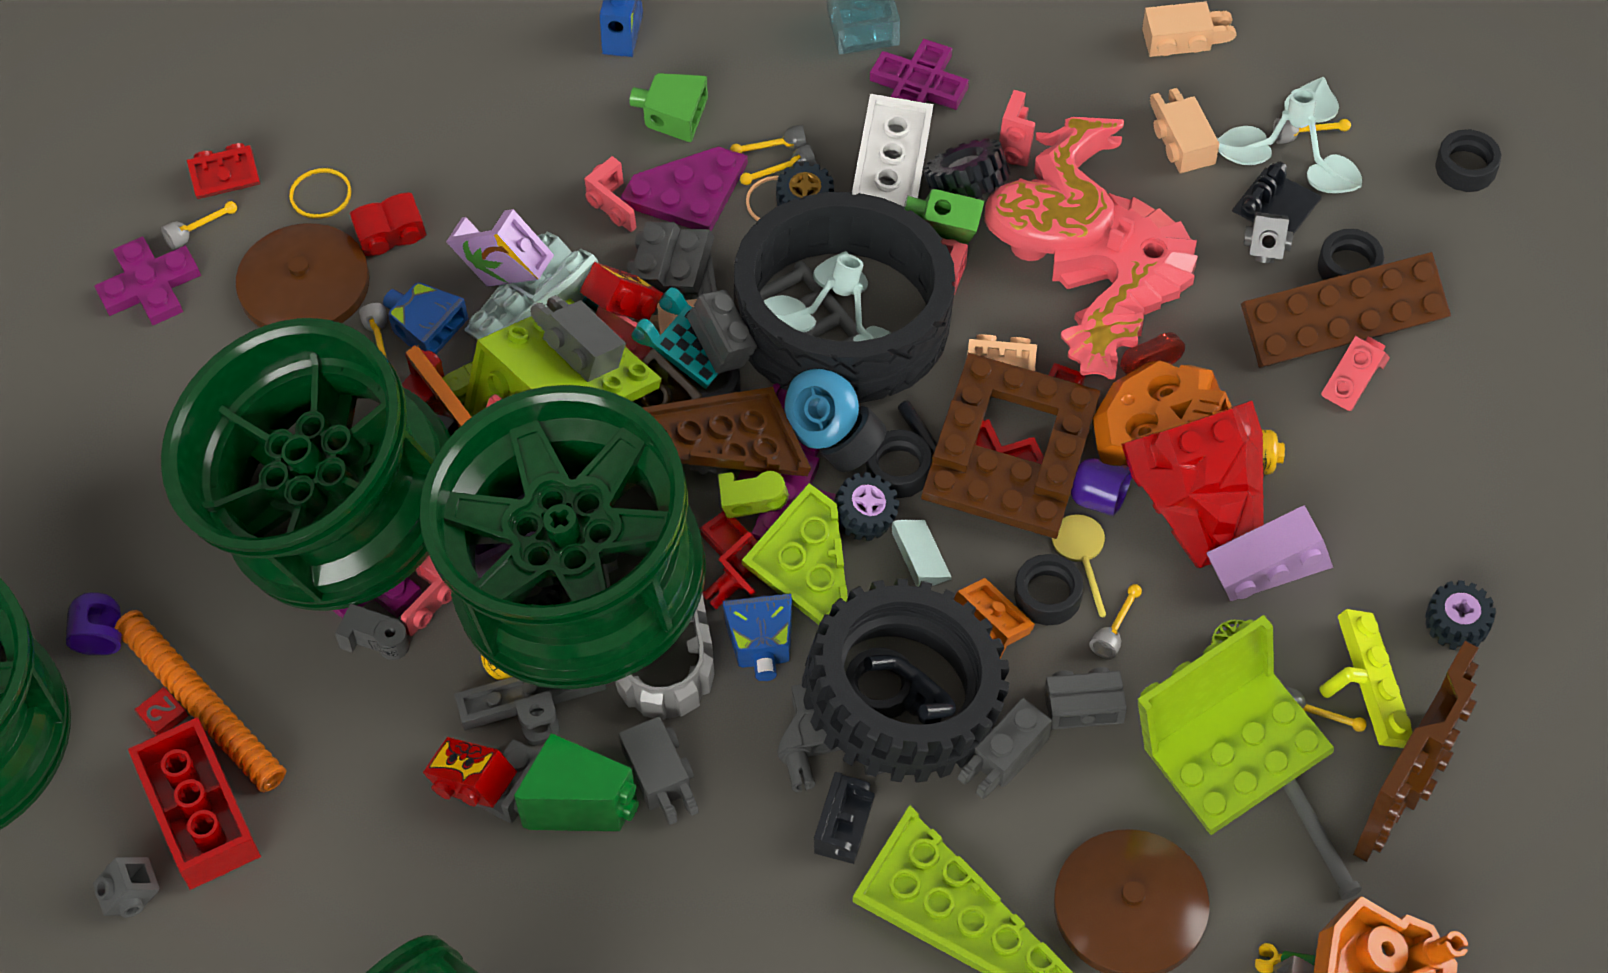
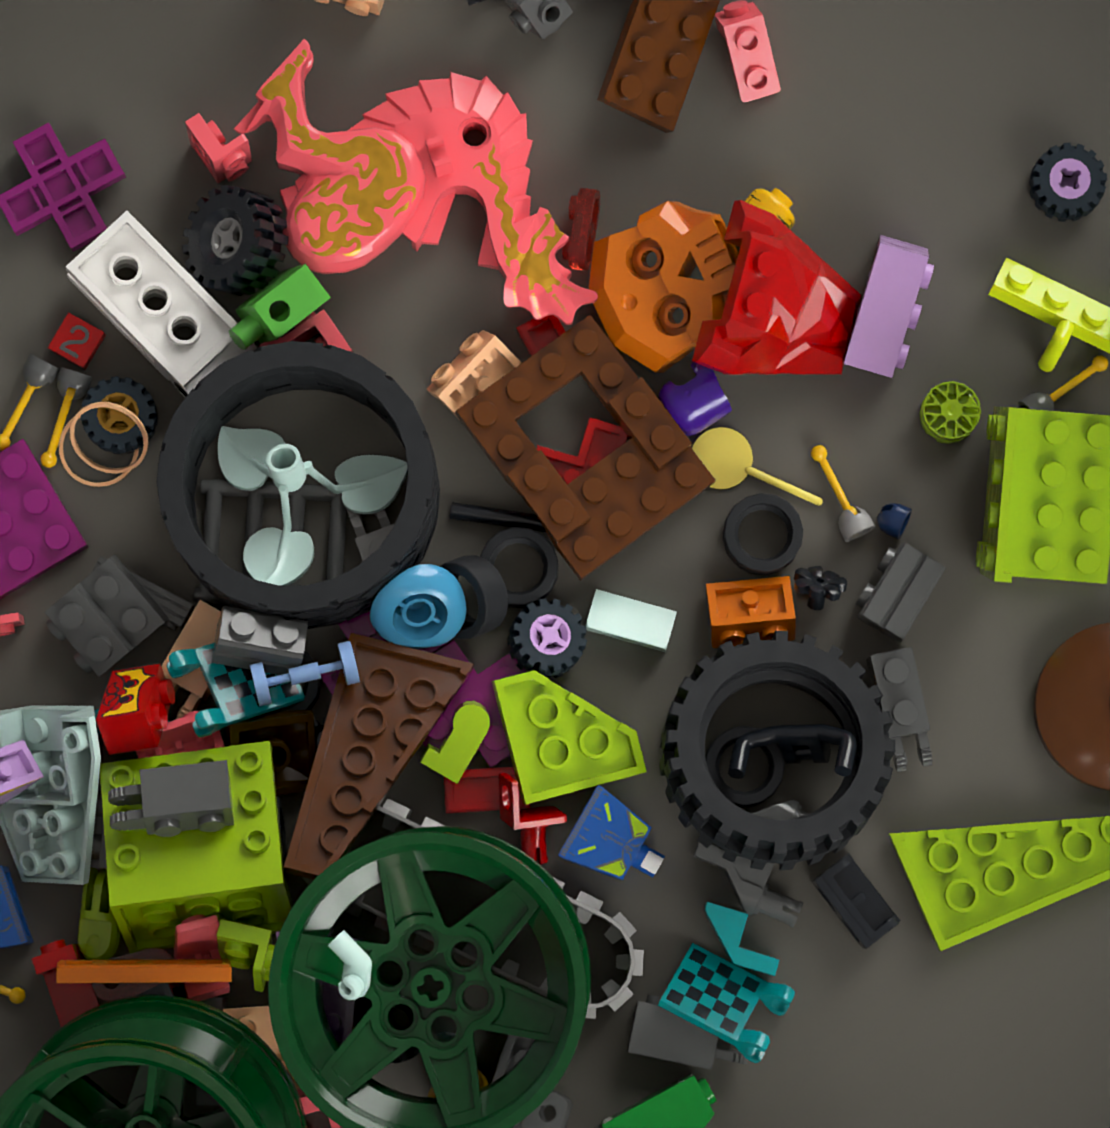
camera: 55 degrees left, 25 degrees up
(530, 446) = (356, 967): none -> light aqua arm
(695, 344) = (305, 673): none -> light blue wheel
(706, 769) = (722, 998): none -> teal flag
(756, 751) = (729, 927): none -> teal slope
(774, 171) = (122, 409): none -> light nougat piece
(832, 147) = (76, 341): none -> red tile
(1044, 646) = (819, 585): none -> black plant
(1132, 665) = (894, 519): none -> dark blue hinge

